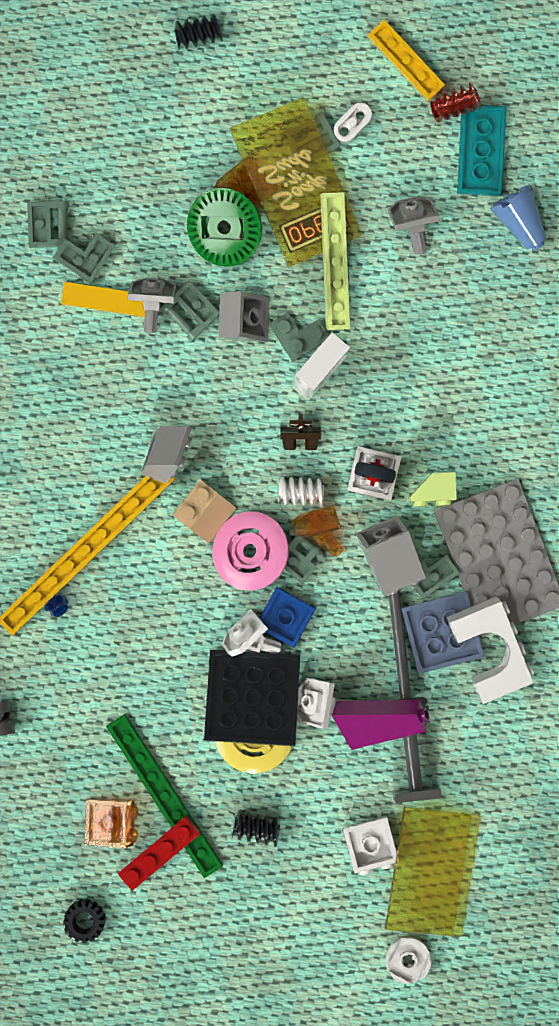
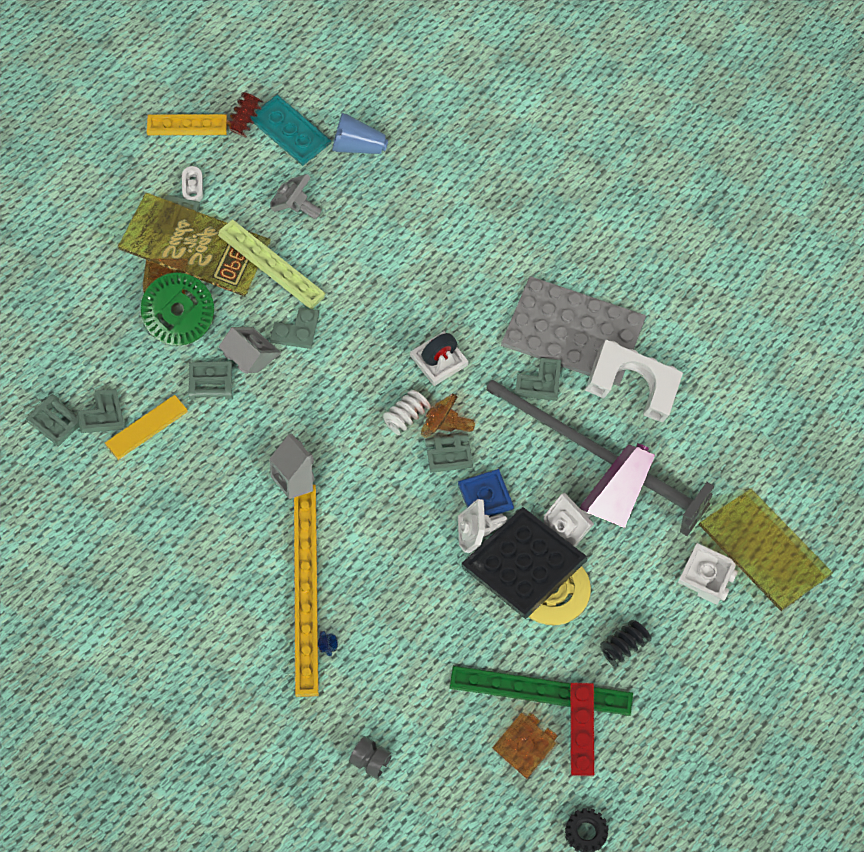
camera: 50 degrees left, 25 degrees down
(152, 293) = (178, 393): light grey piece -> none
(197, 31) = (33, 221): black piece -> none
(204, 511) = (357, 485): tan slope -> none
(270, 555) = (409, 497): bright pink piece -> none
(300, 430) = (361, 390): dark brown hips -> none
(321, 366) = (333, 316): white arch -> none
(391, 555) = (508, 385): light grey slope -> none
(412, 972) = (813, 632): white plate -> none
(432, 637) = (590, 413): sand blue plate -> none
(435, 488) = (489, 324): yellowish green slope -> none

